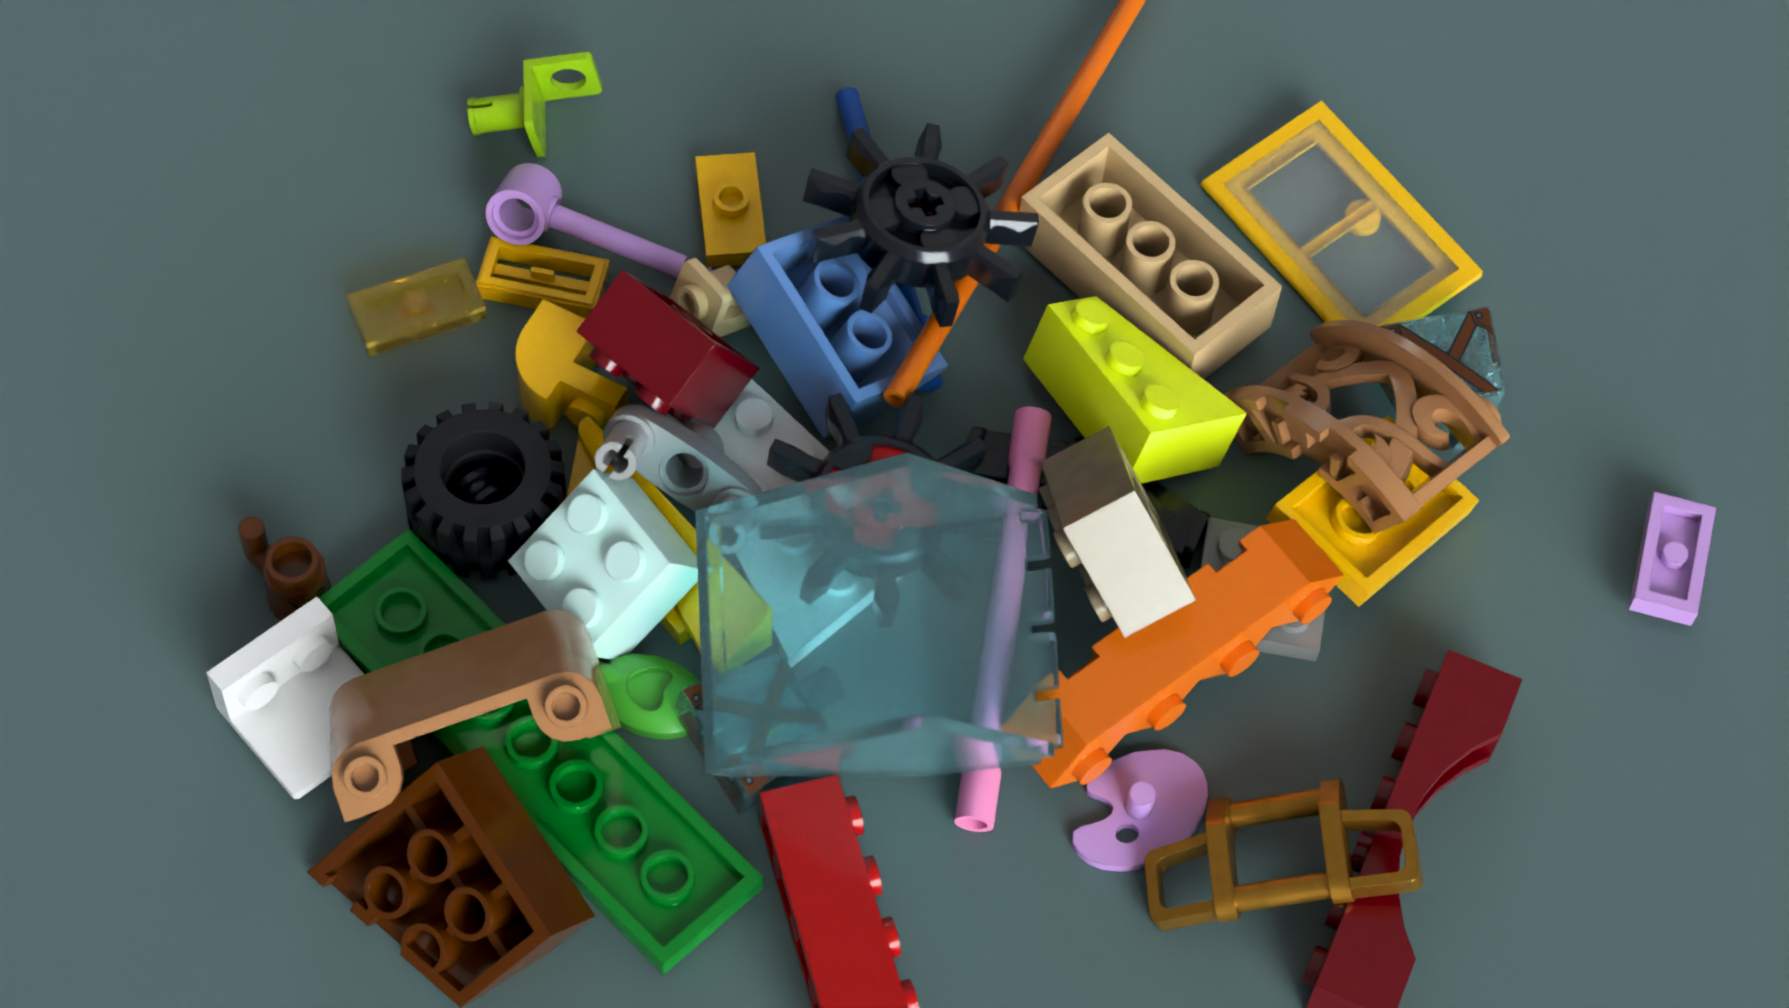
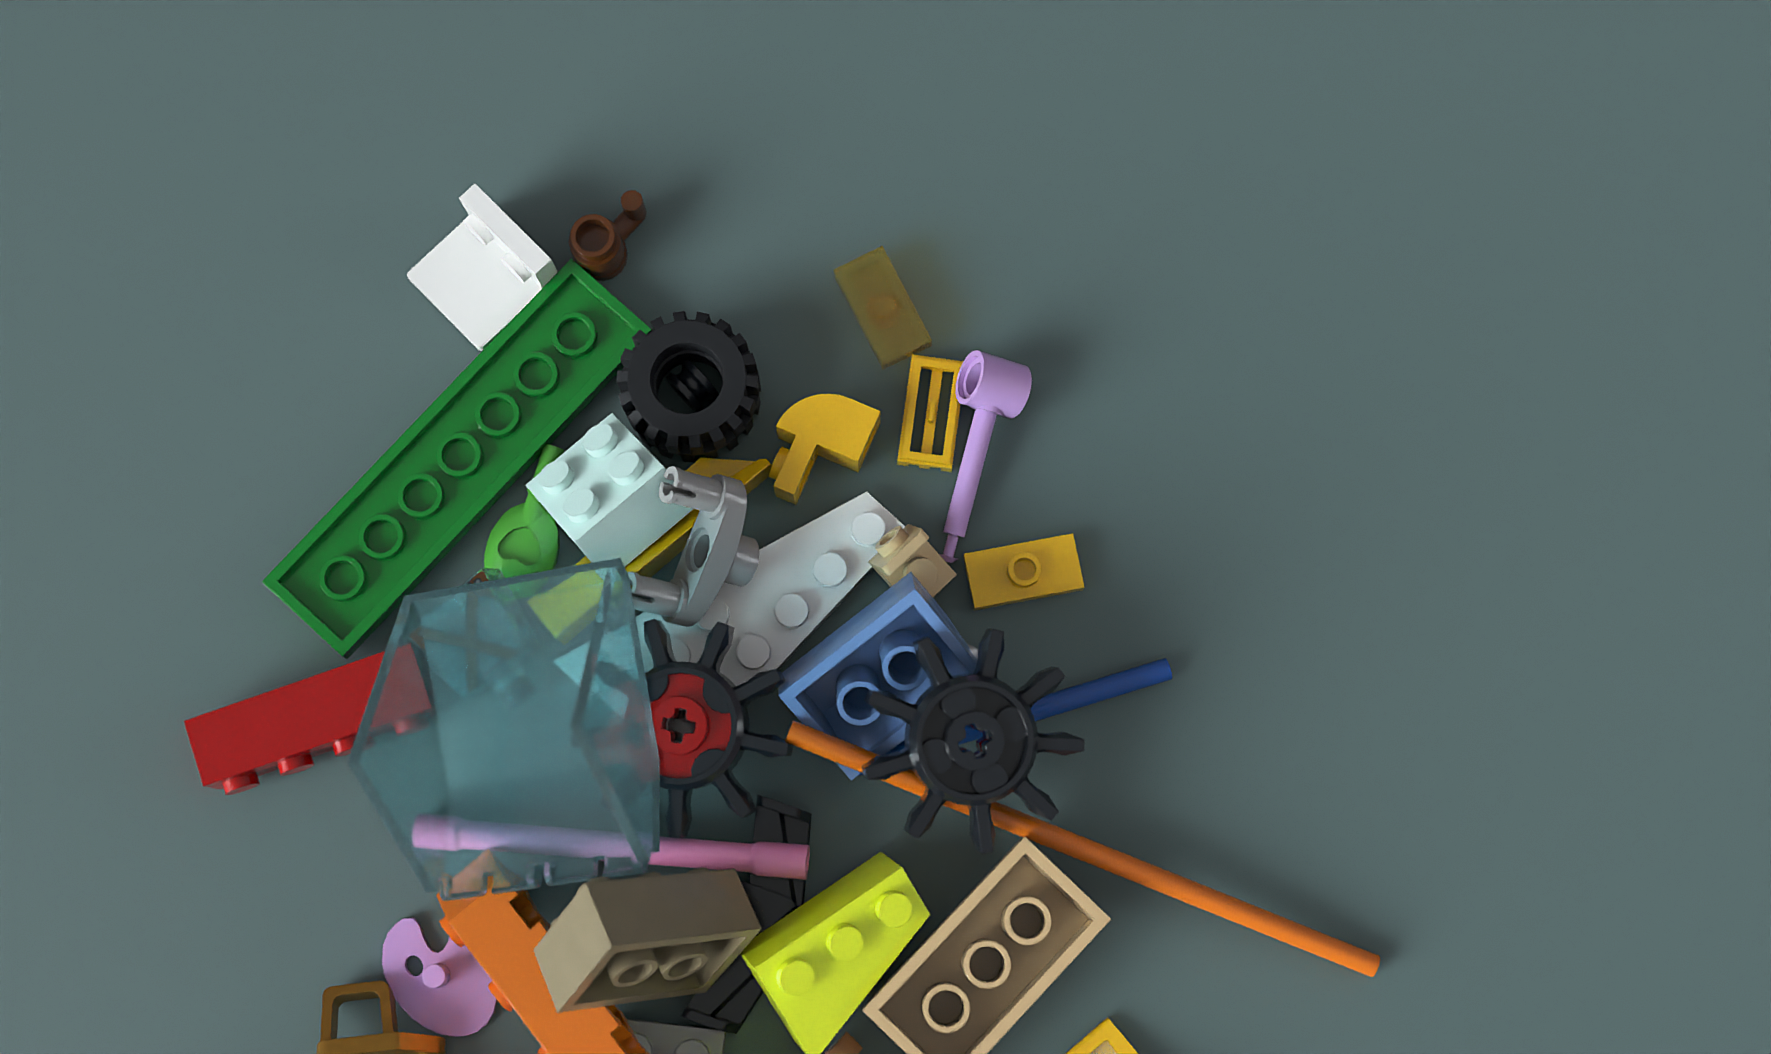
camera: 90 degrees right, 20 degrees up
(458, 878) = (327, 417): reddish brown wedge -> none
(528, 106) = (1108, 378): lime bracket -> none
(534, 658) = (456, 394): medium nougat windscreen -> none
(665, 352) = (814, 521): dark red brick -> none

